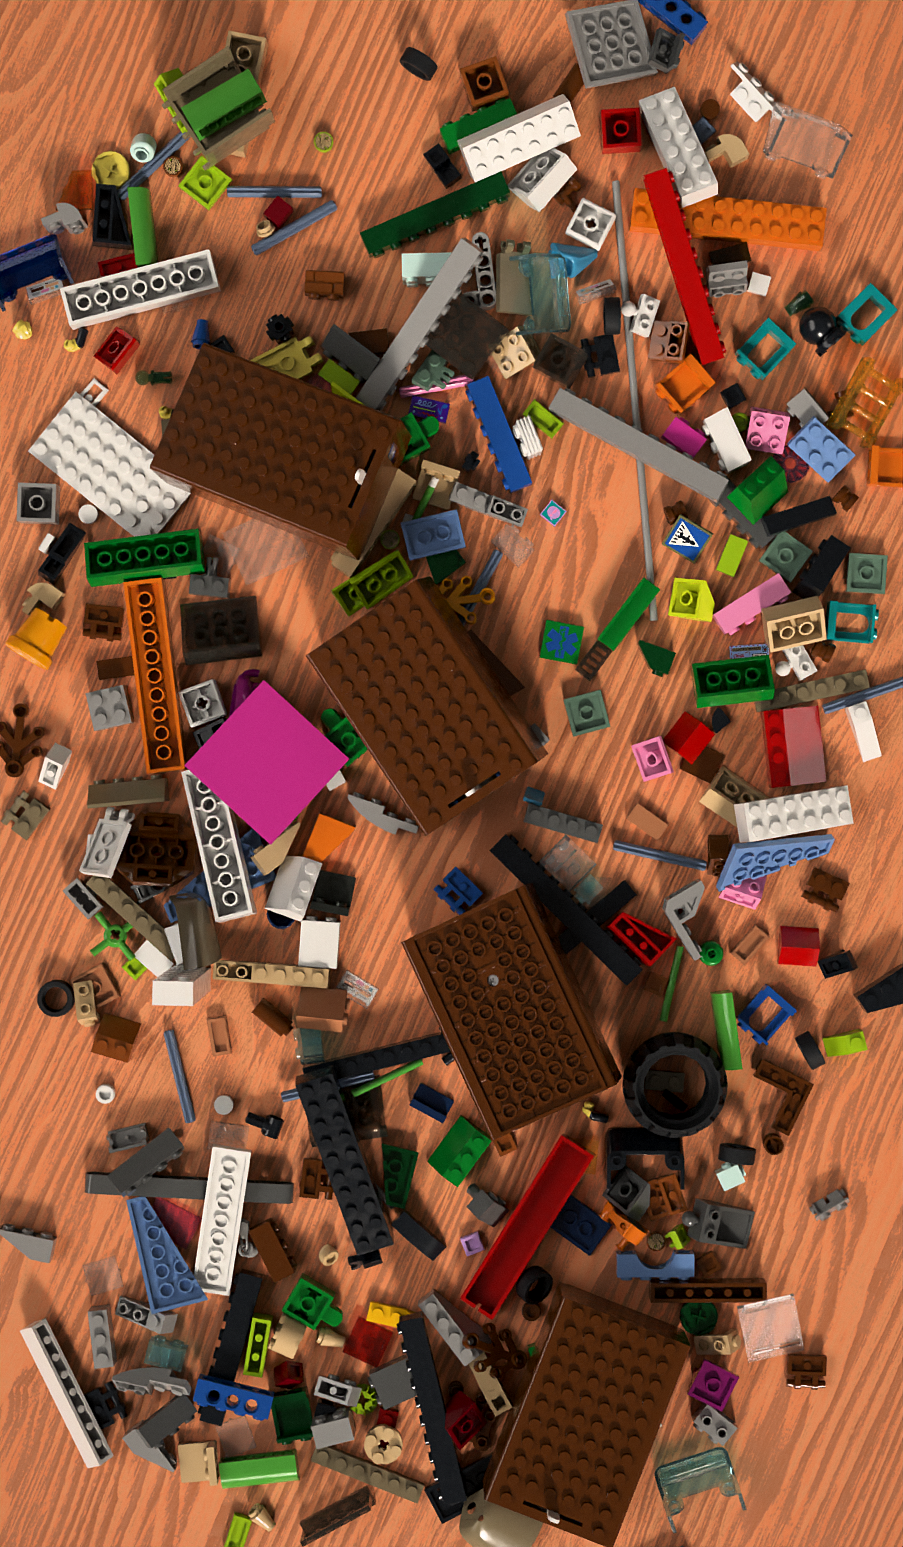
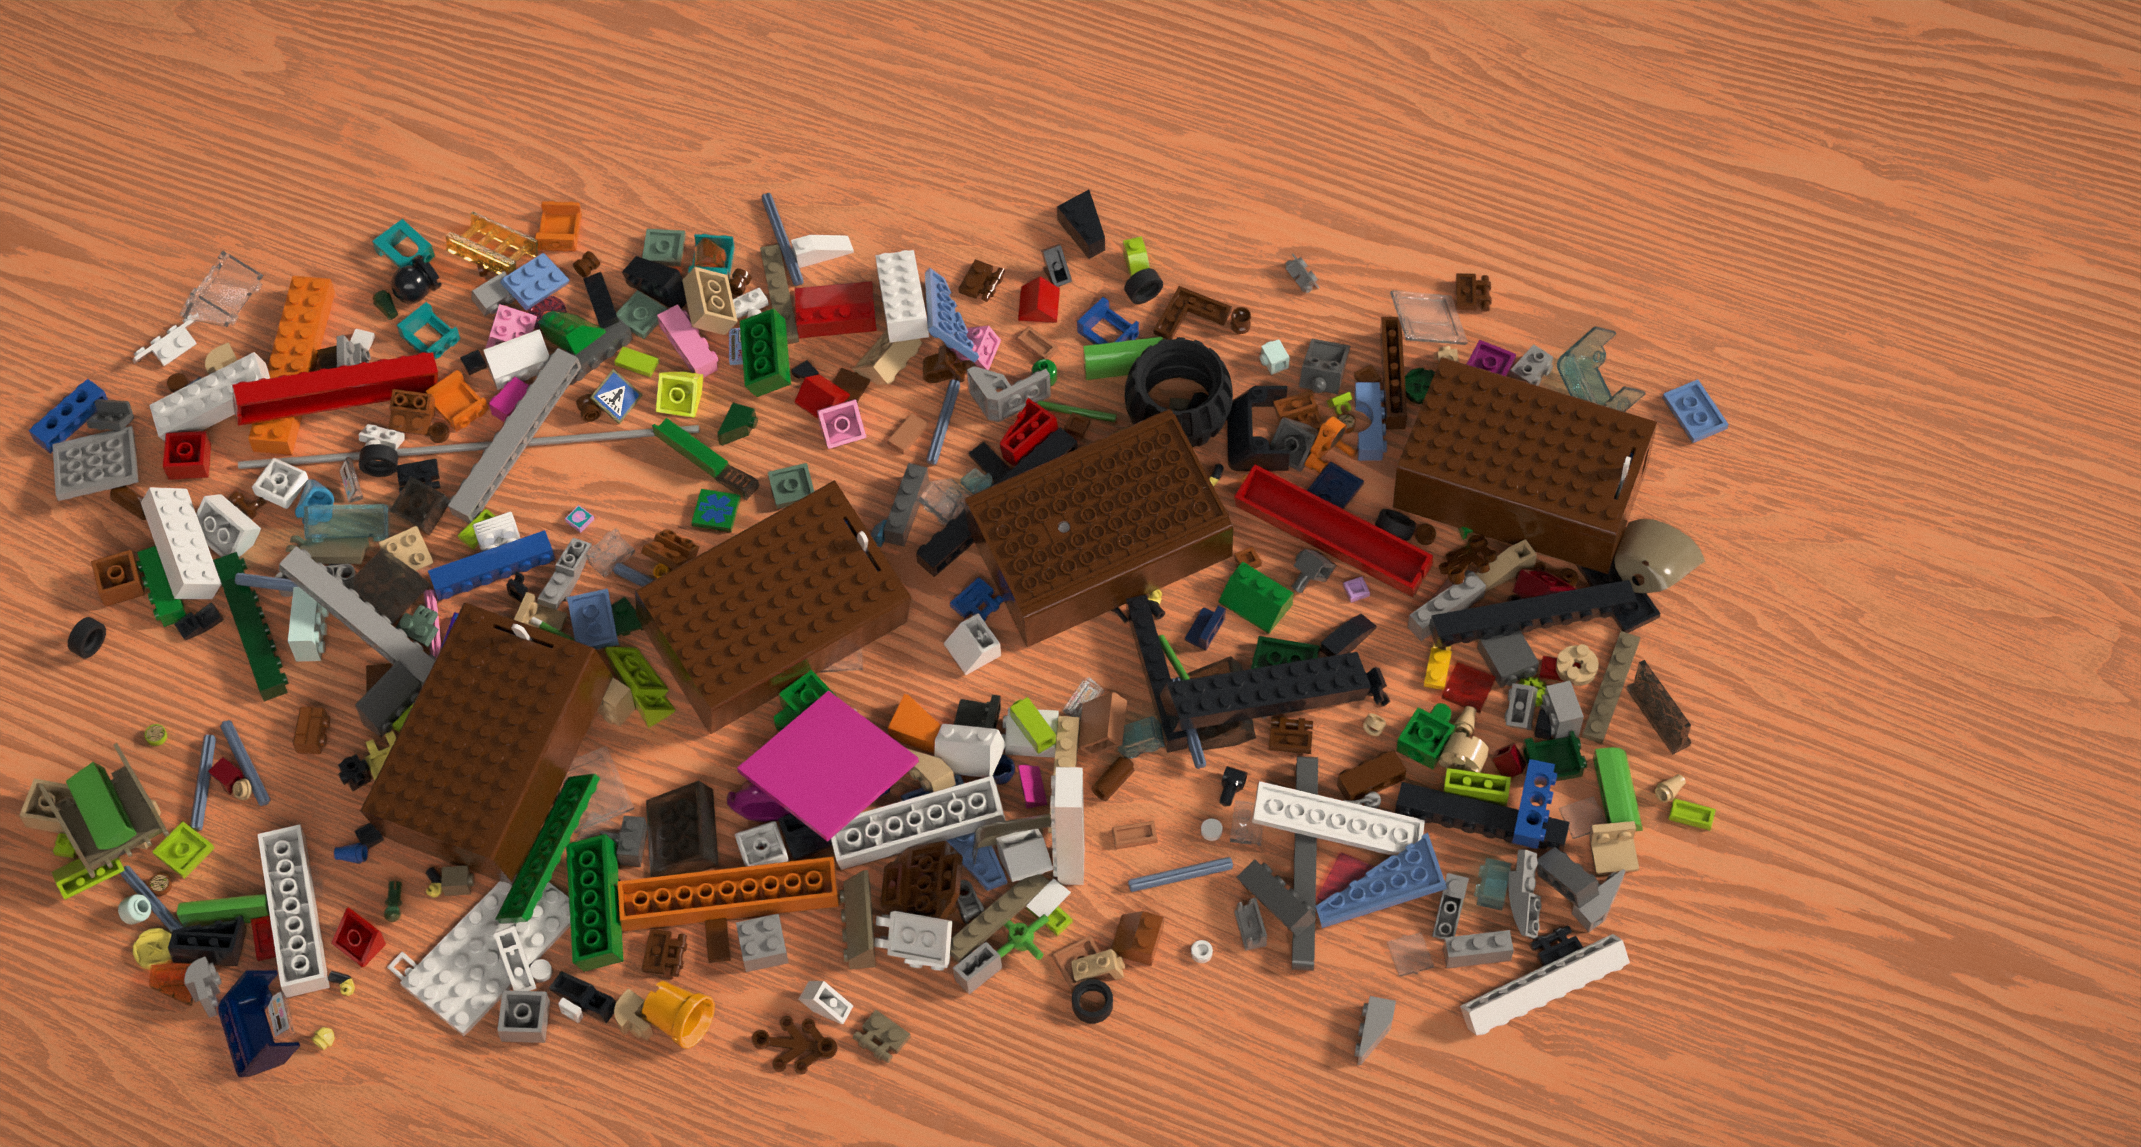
camera: 90 degrees left, 30 degrees down
(90, 490) = (514, 959): none -> white slope
(193, 512) = (547, 849): none -> green plate
(267, 944) = (1032, 786): none -> dark pink slope
(316, 946) = (1032, 725): none -> lime brick
(374, 810) = (892, 678): light grey slope -> none
(408, 888) = (973, 644): none -> white slope
(472, 230) = (264, 582): none -> sand blue axle
(511, 602) = (670, 549): none -> dark orange brick
(651, 370) = (438, 432): none -> reddish brown tile
(737, 1154) = (1250, 347): black tyre -> none
(848, 620) = (709, 254): none -> clear orange slope

